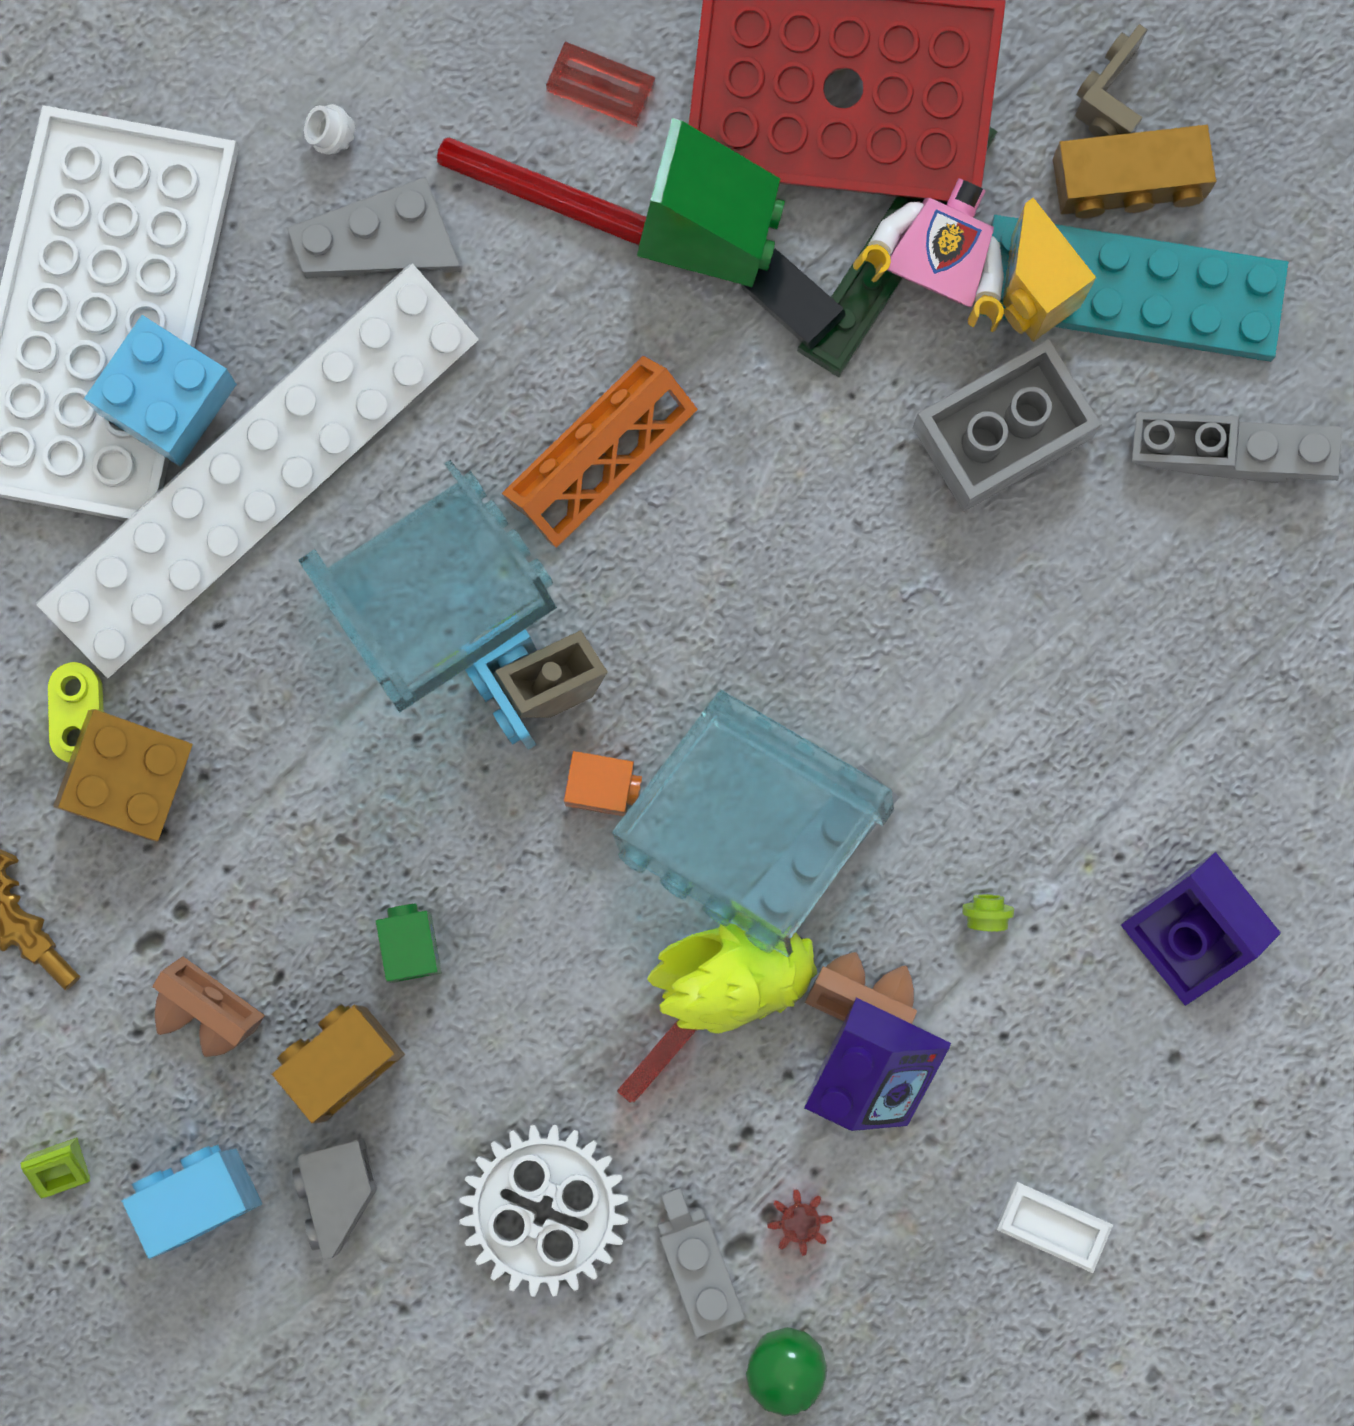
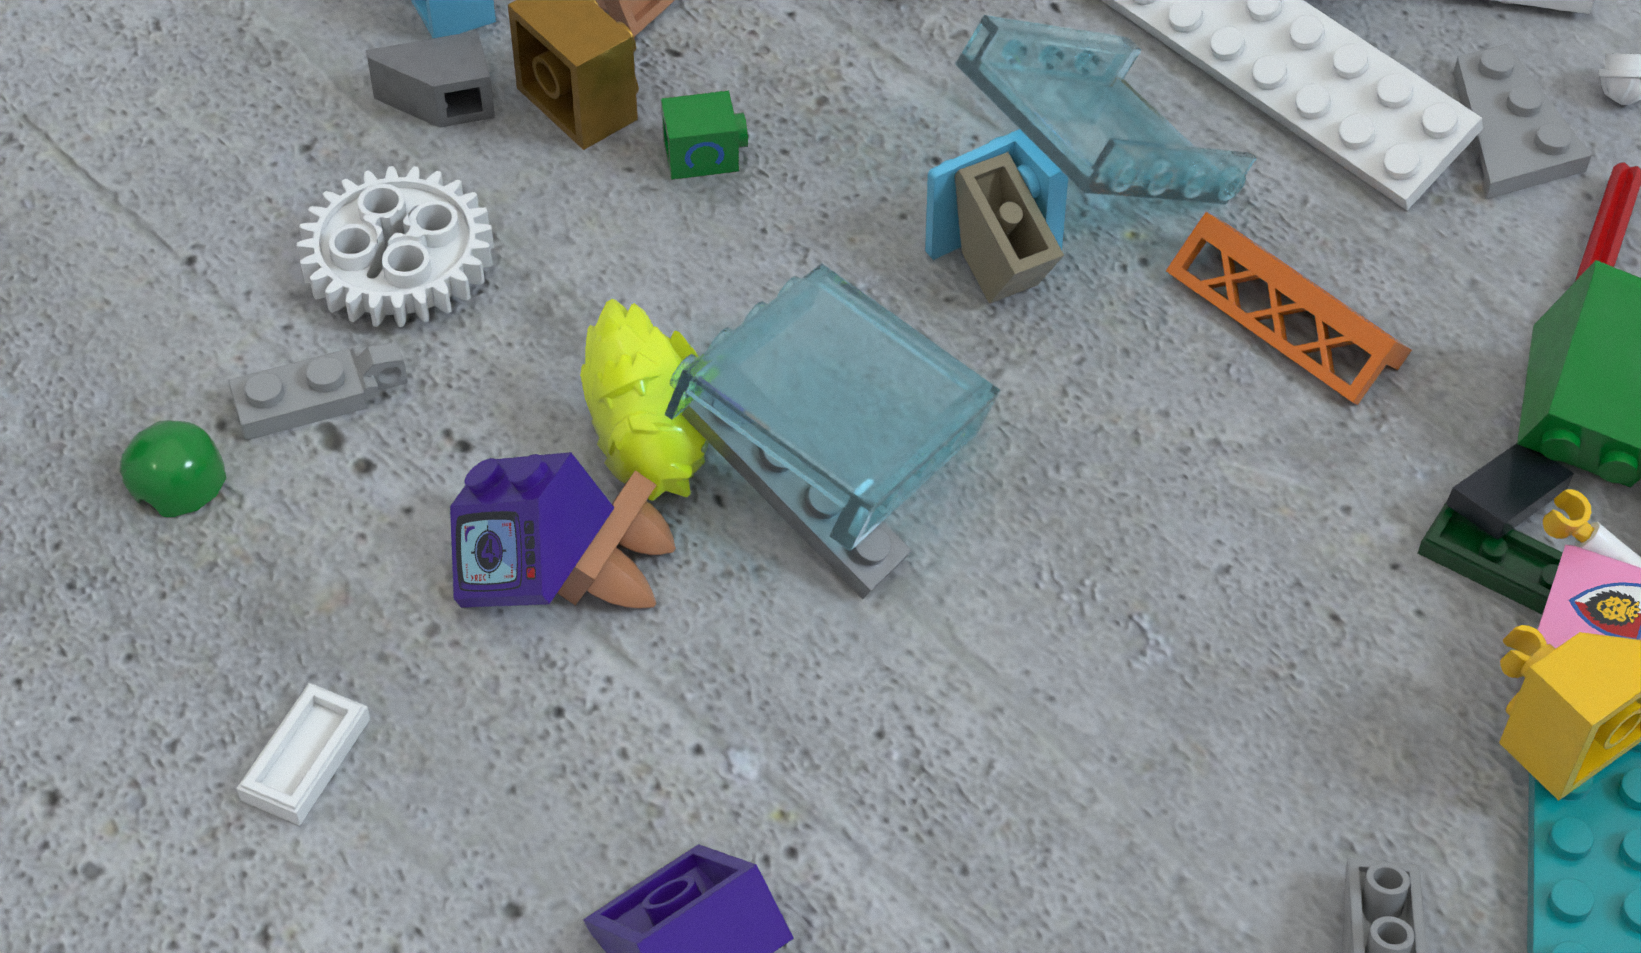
camera: 90 degrees right, 30 degrees down
(601, 784) = (889, 279): orange brick -> none
(655, 1062) = (547, 336): clear red tile -> none
(811, 1230) = (348, 474): clear red gear -> none
(988, 913) = (717, 678): lime plate -> none
(1006, 425) = (1376, 700): light grey brick -> none

